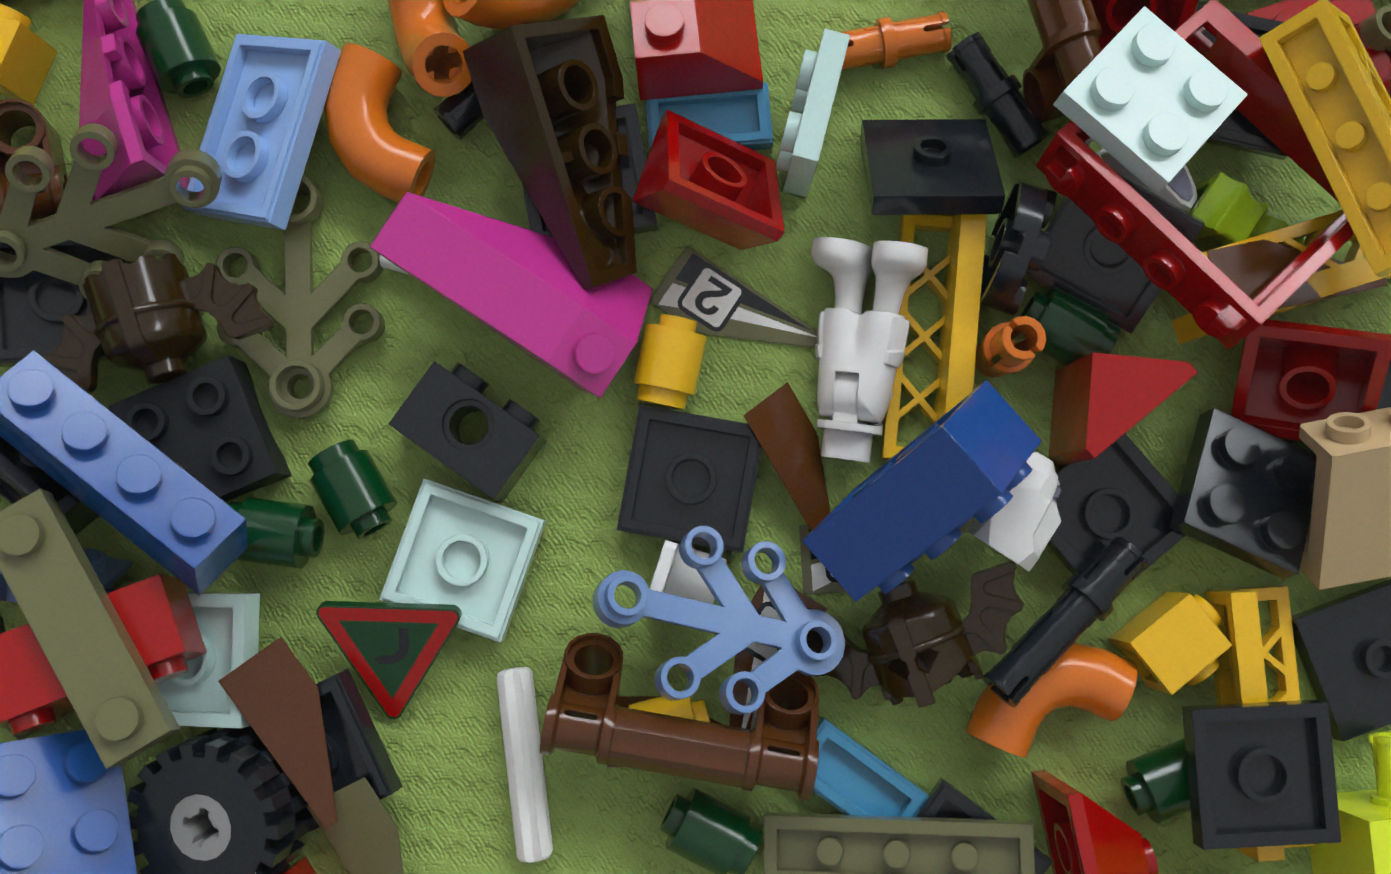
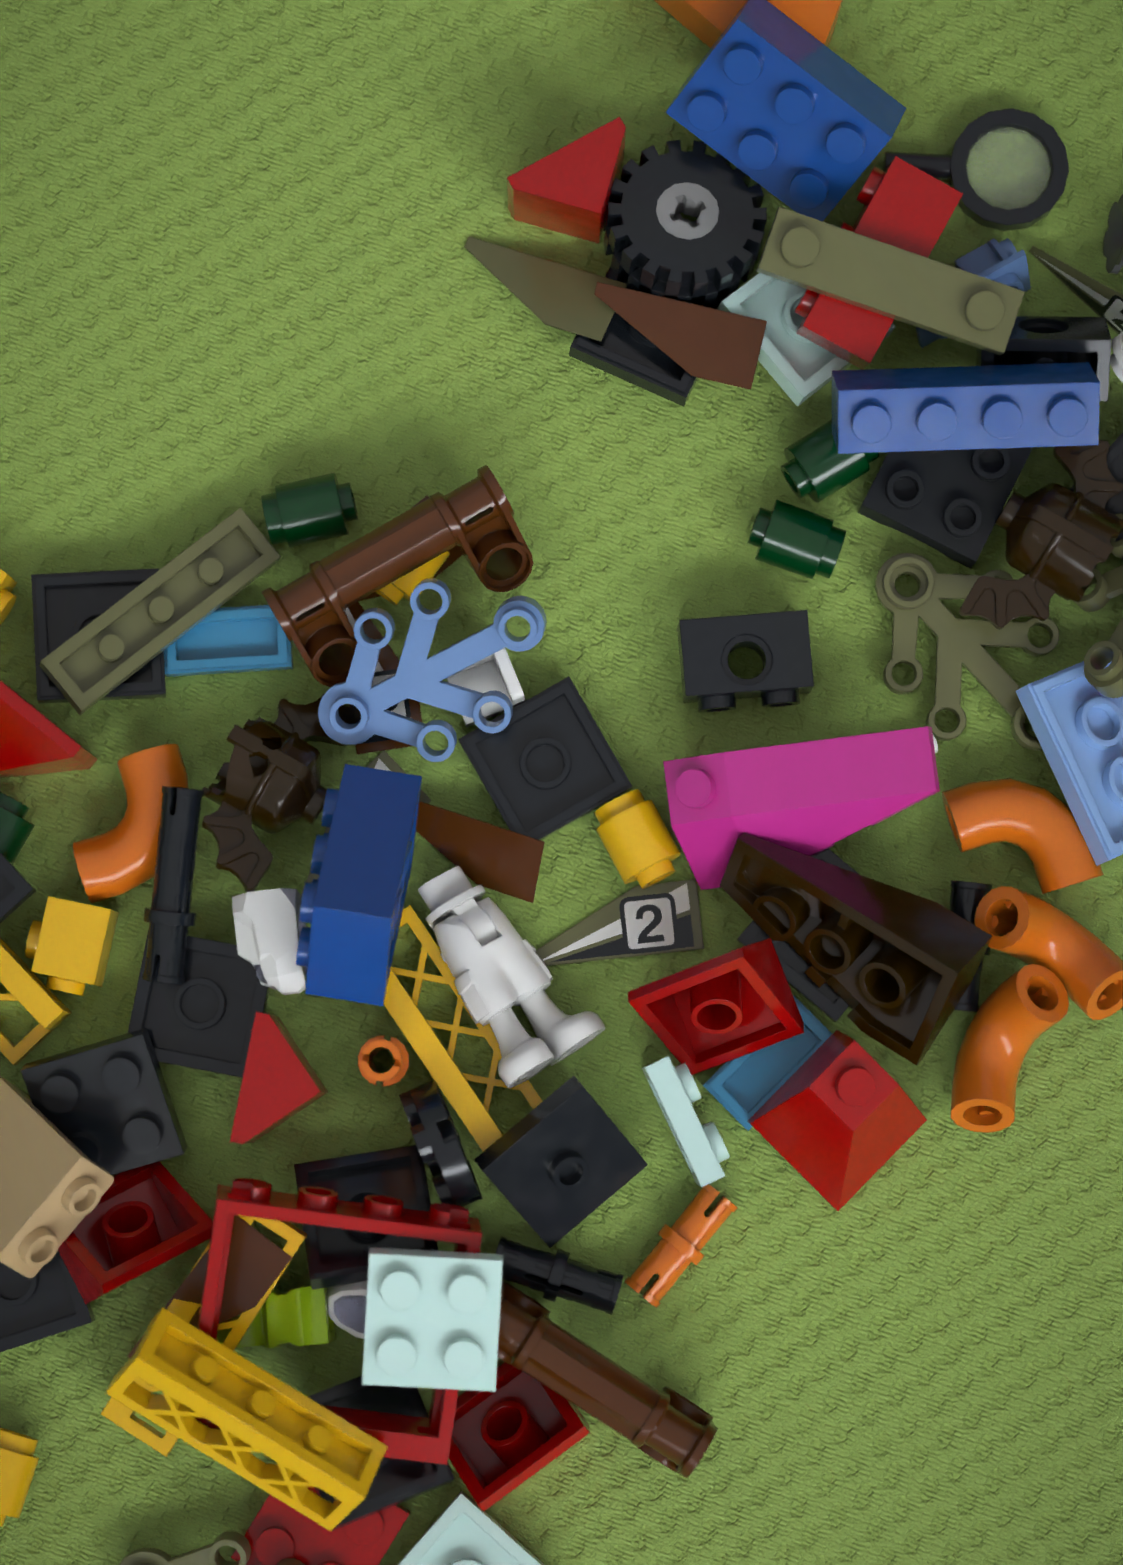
camera: 140 degrees right, 0 degrees up
(389, 644) = (667, 450): piece -> none
(464, 556) = (667, 558): light aqua plate -> none
(524, 764) = (492, 446): white axle -> none
(1071, 326) = (346, 1124): dark green brick -> none

